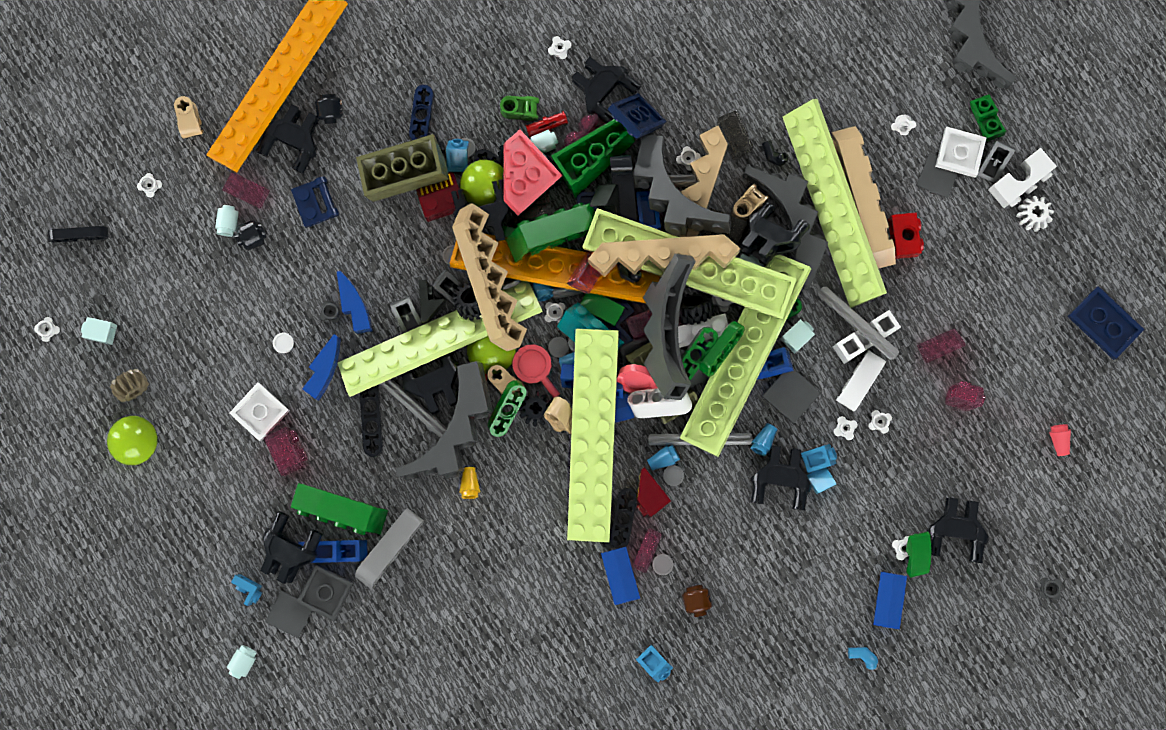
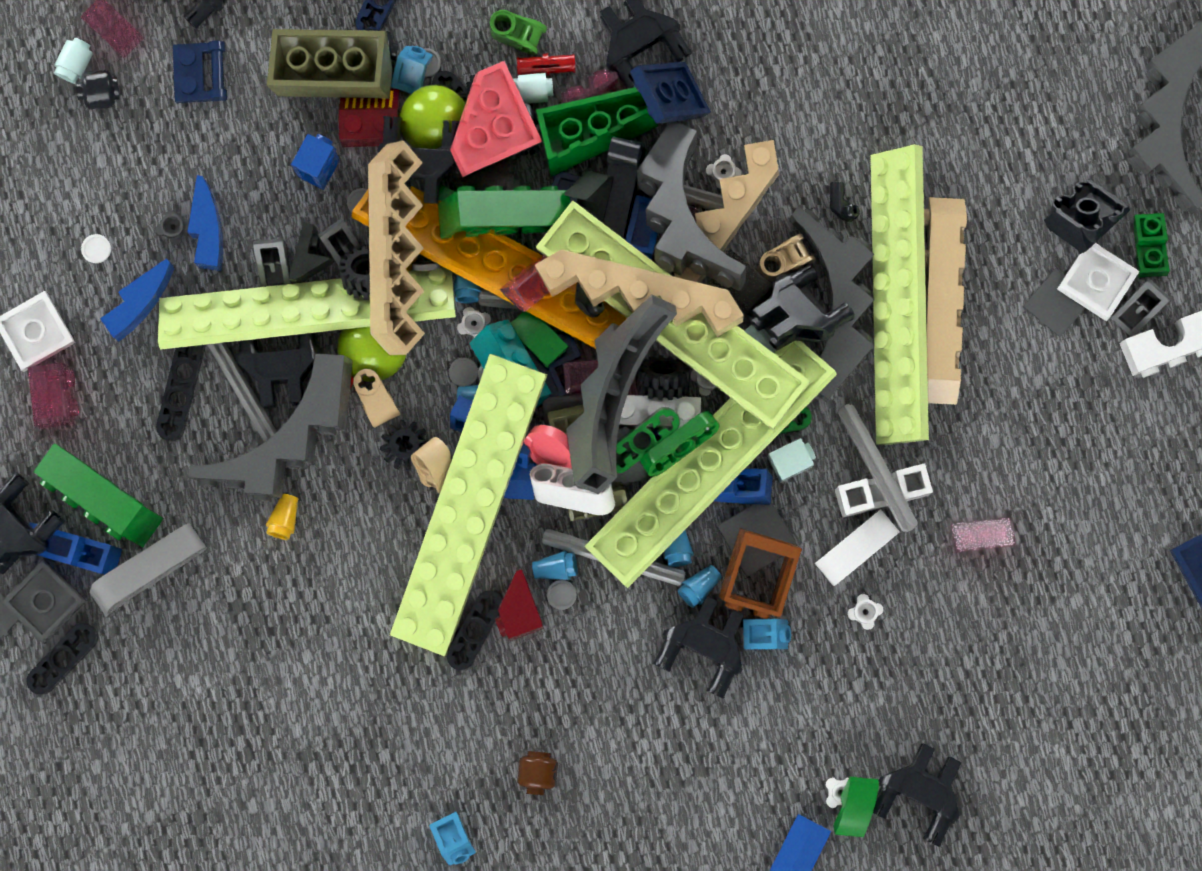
camera: 15 degrees right, 0 degrees up
(352, 610) = (52, 680): none -> black beam
(414, 236) = (316, 160): none -> blue brick
(506, 399) = (367, 419): green beam -> none
(533, 366) = (421, 386): coral piece -> none
(620, 575) = (444, 706): blue piece -> none
(647, 550) = (492, 683): clear pink slope -> none
(662, 564) = (507, 709): light grey piece -> none
(735, 135) = (796, 160): clear smoke brick -> none
(744, 422) = (679, 552): none -> dark azure cone
(820, 419) = (776, 605): none -> dark orange window
(821, 480) = (759, 664): medium azure slope -> none
(839, 430) = (815, 597): white plate -> none
(903, 124) = (1032, 218): white plate -> none
(906, 223) = (986, 352): red brick -> none
(938, 111) = (1085, 215): none -> black slope
(965, 396) = (990, 613): clear pink brick -> none
(1031, 219) = (1163, 402): white gear -> none
(1061, 439) = (1103, 714): coral cone -> none

